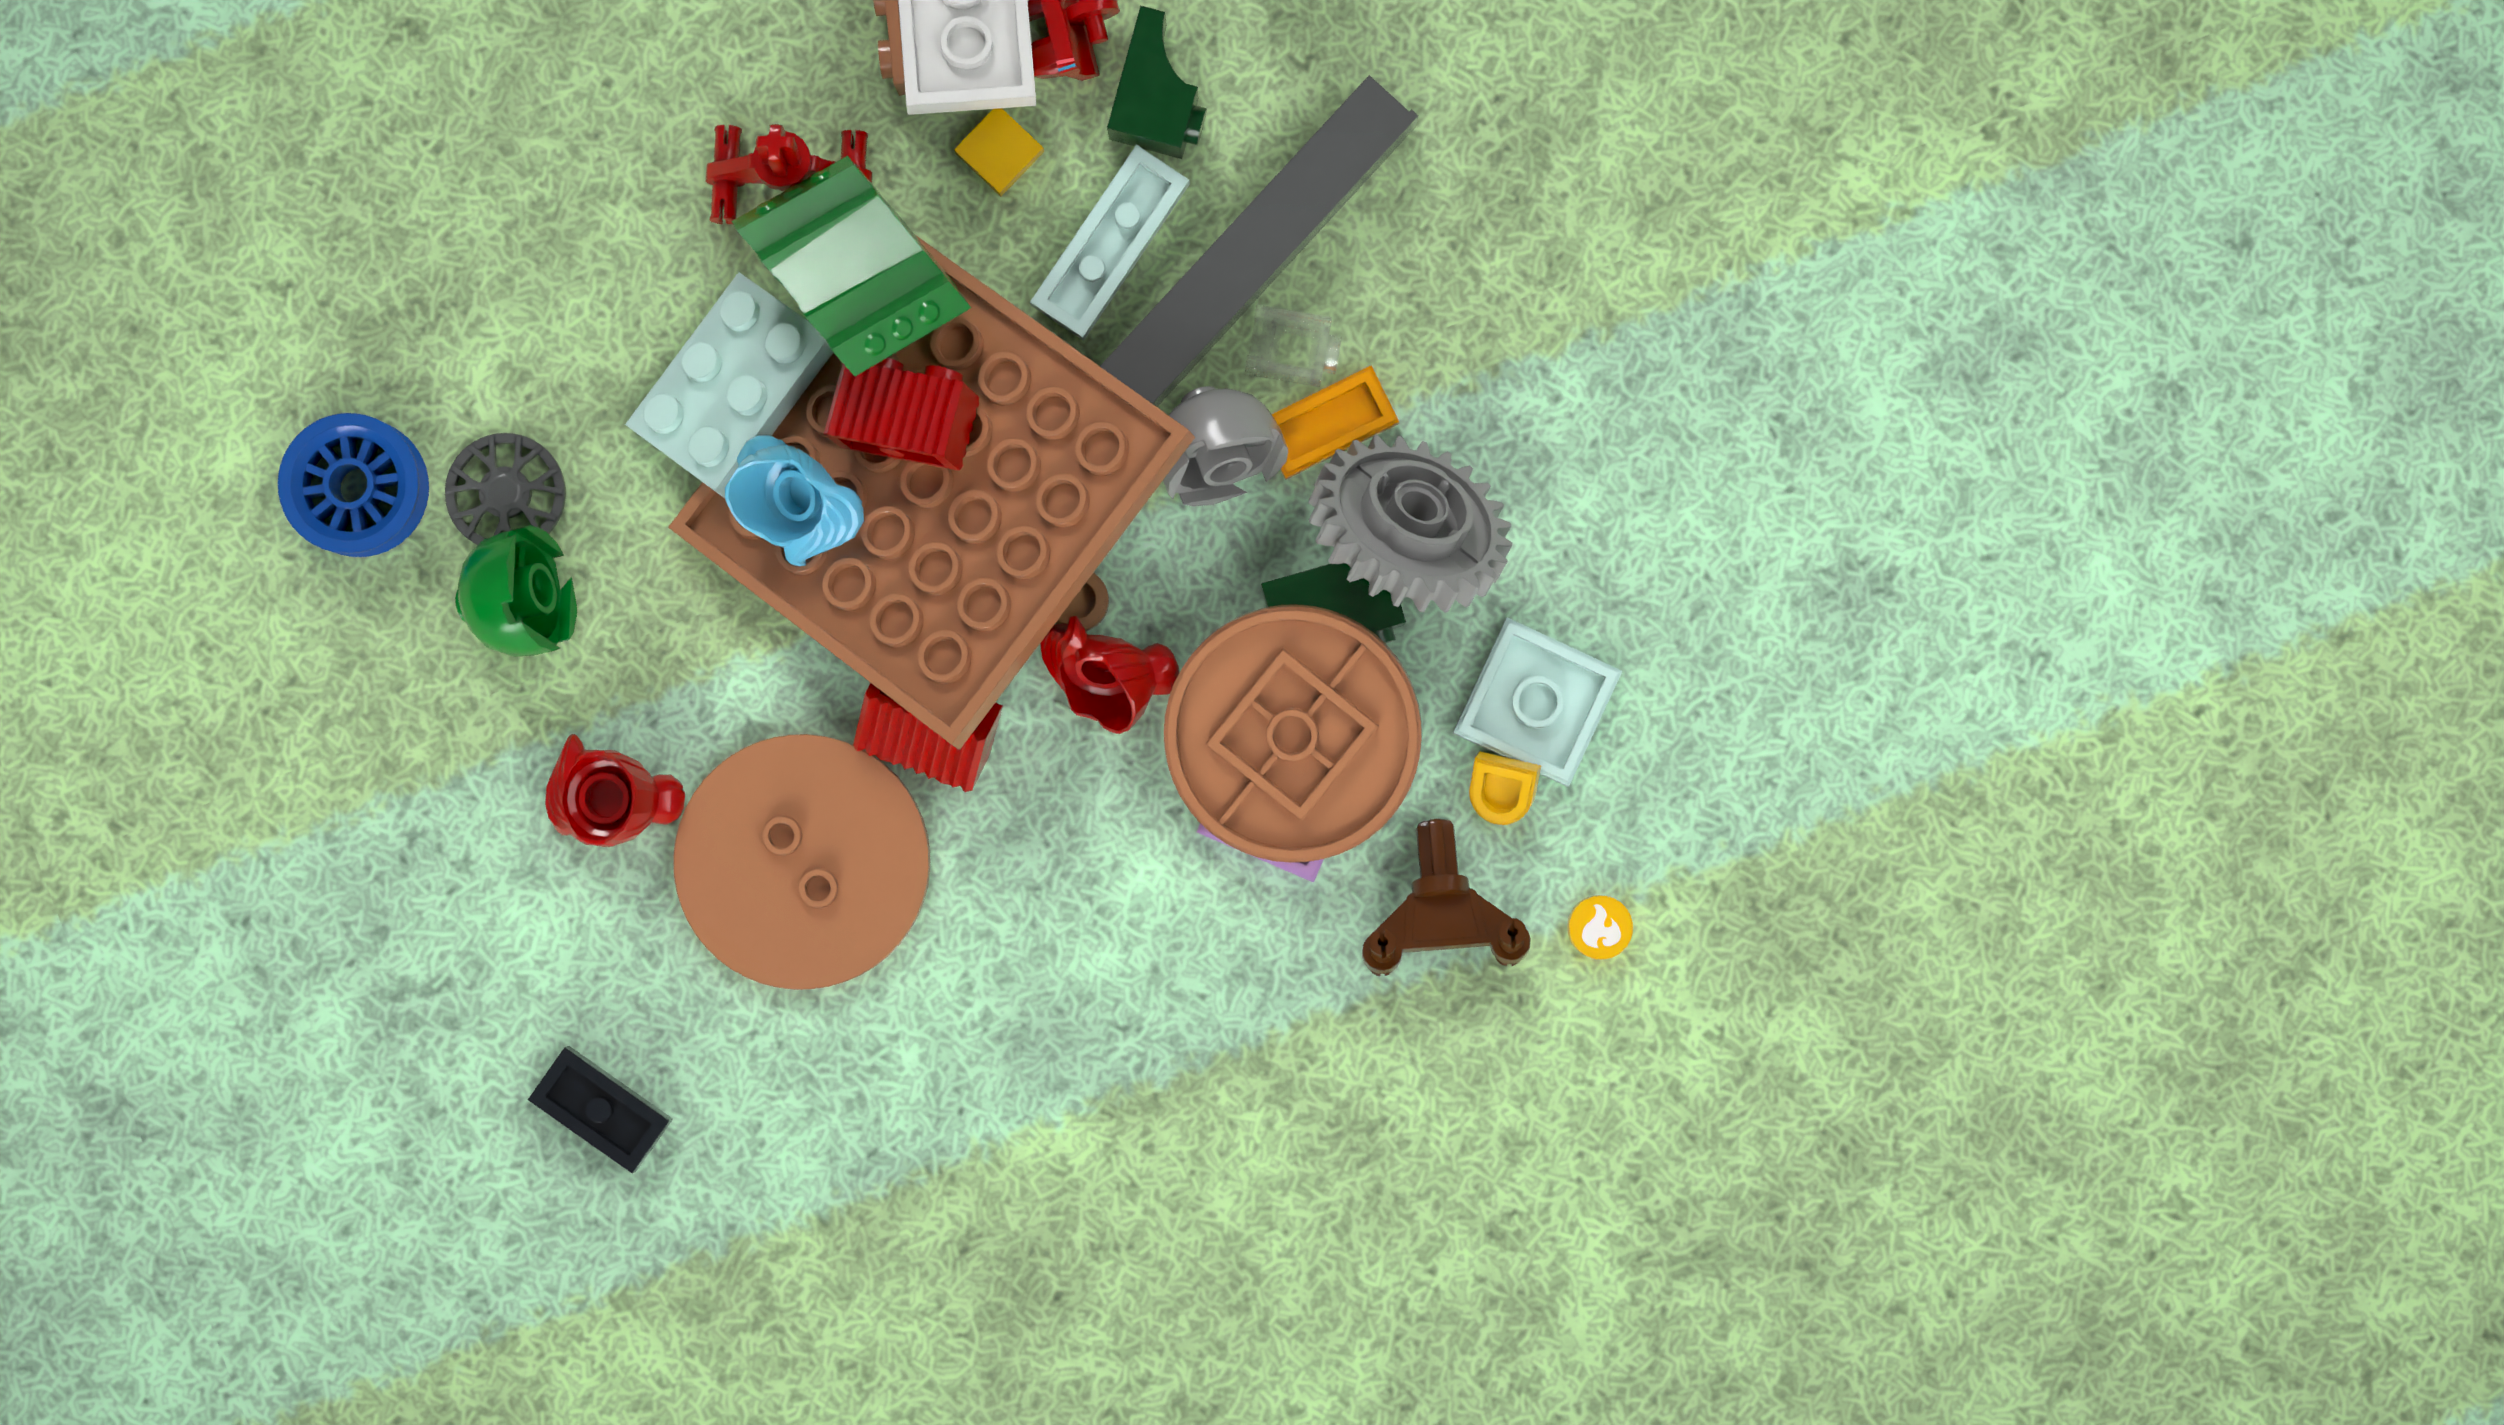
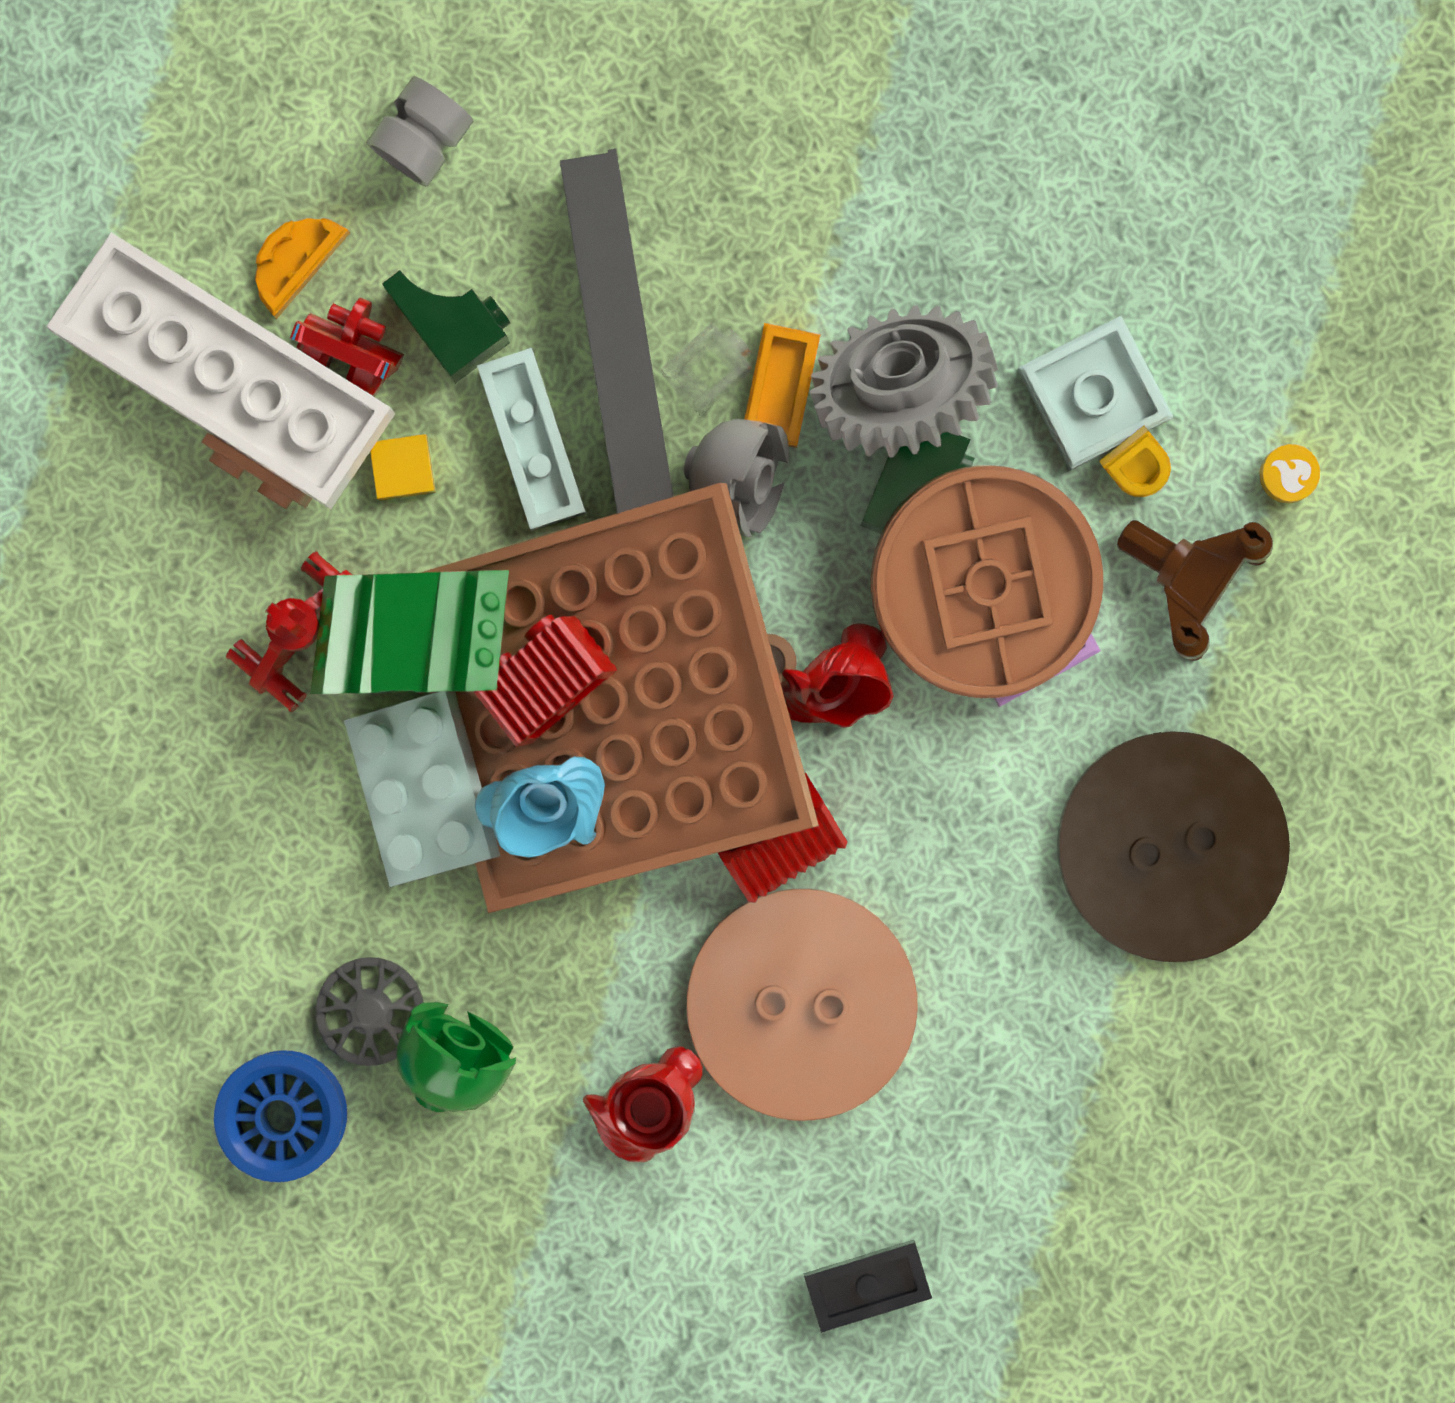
camera: 55 degrees left, 0 degrees up
(1192, 1079) = (1173, 846): none -> dark brown plate

